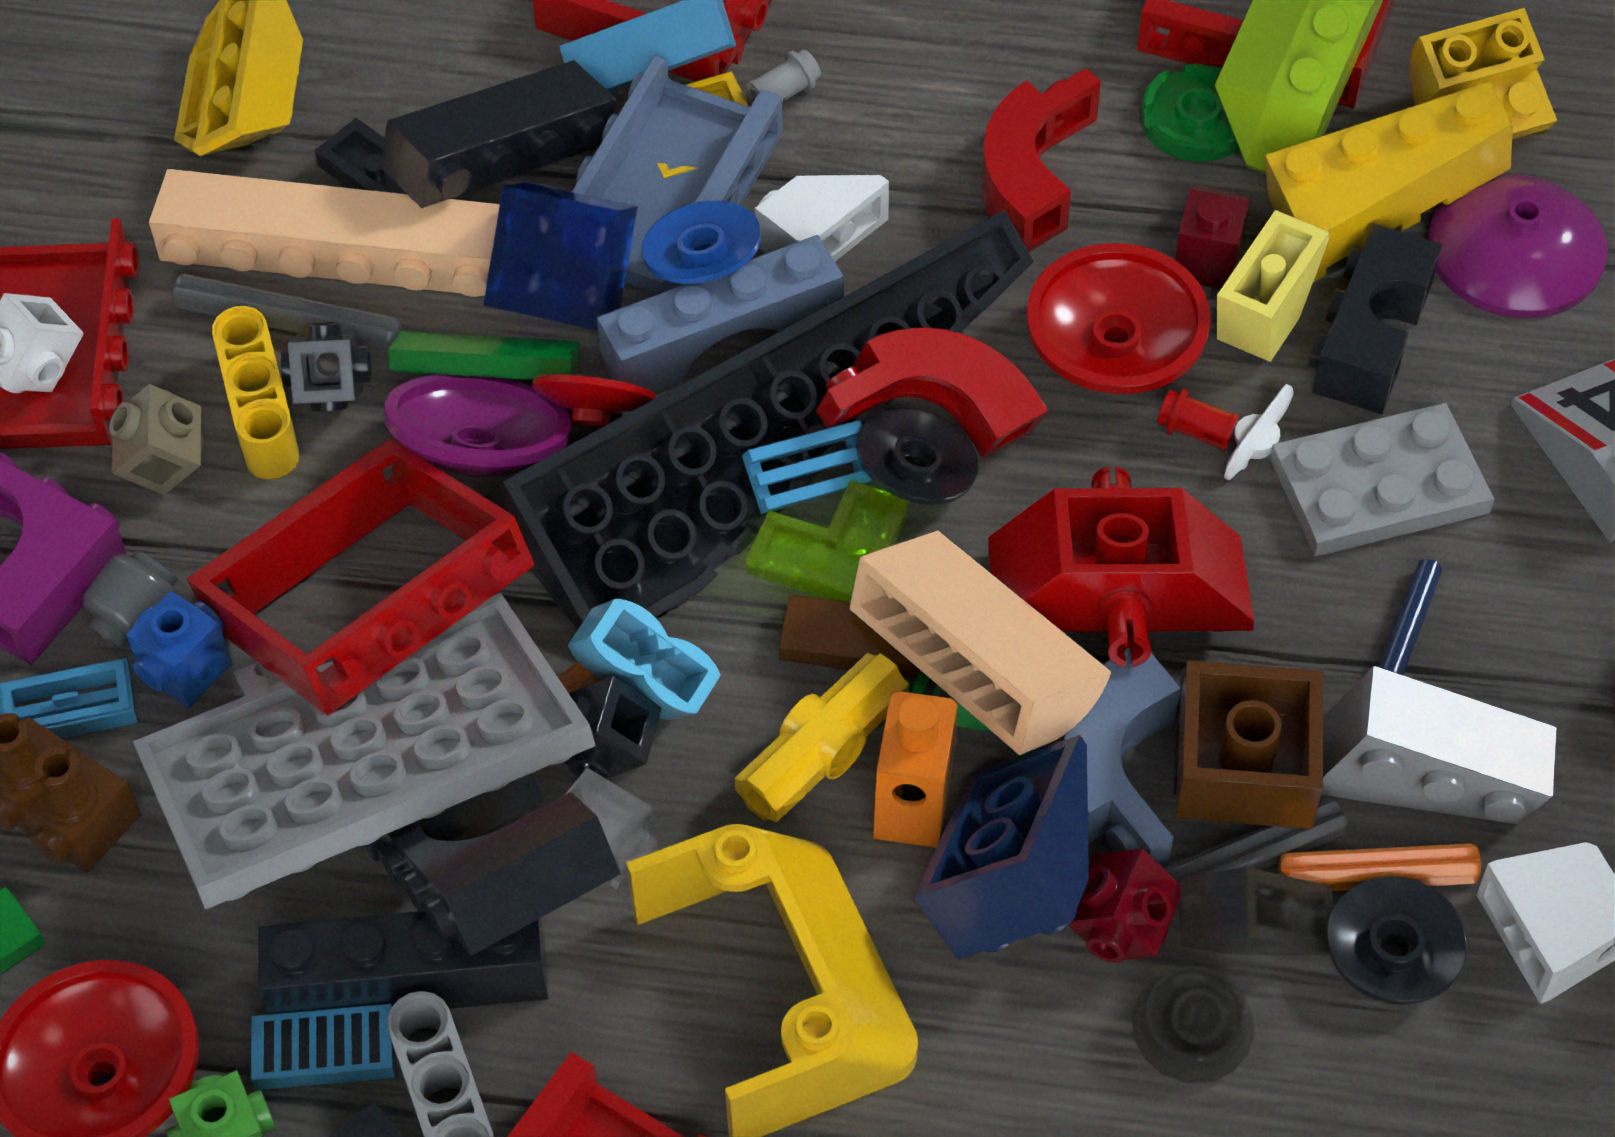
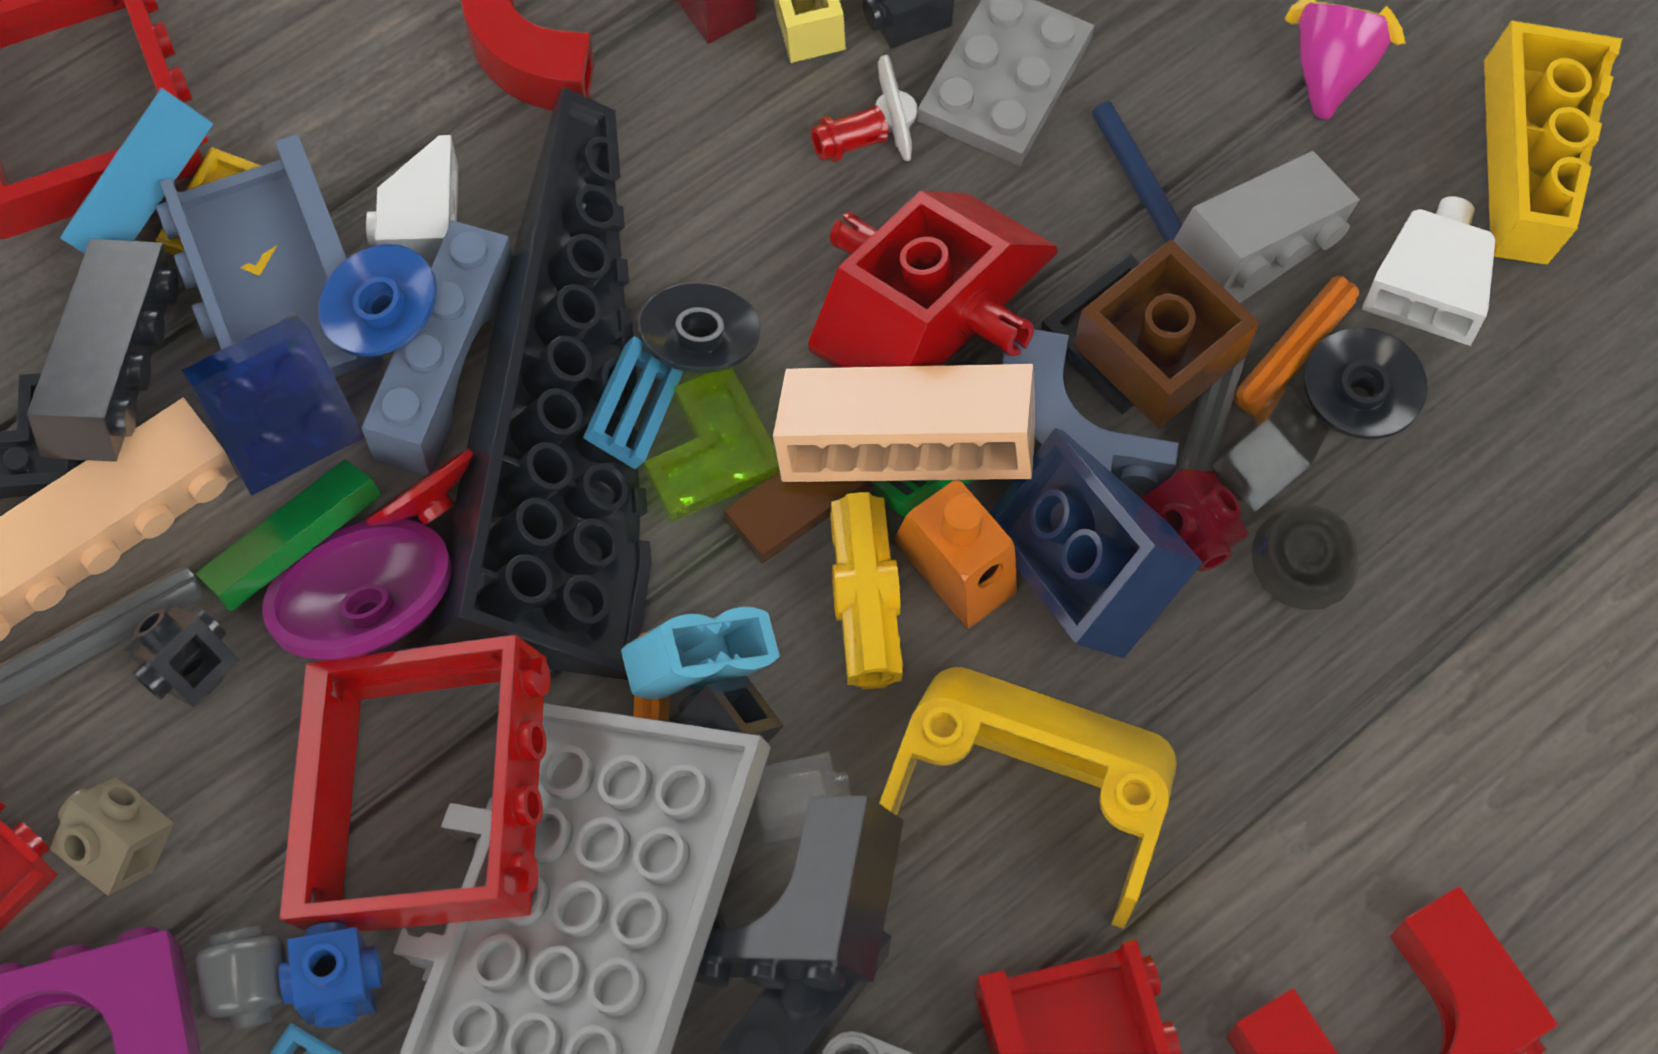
camera: 50 degrees left, 10 degrees up
(255, 392) = (125, 701): yellow beam -> none
(788, 78) = (266, 109): light grey pin -> none
(945, 368) = (674, 238): red arch -> none
(1120, 297) = (720, 79): red dish -> none

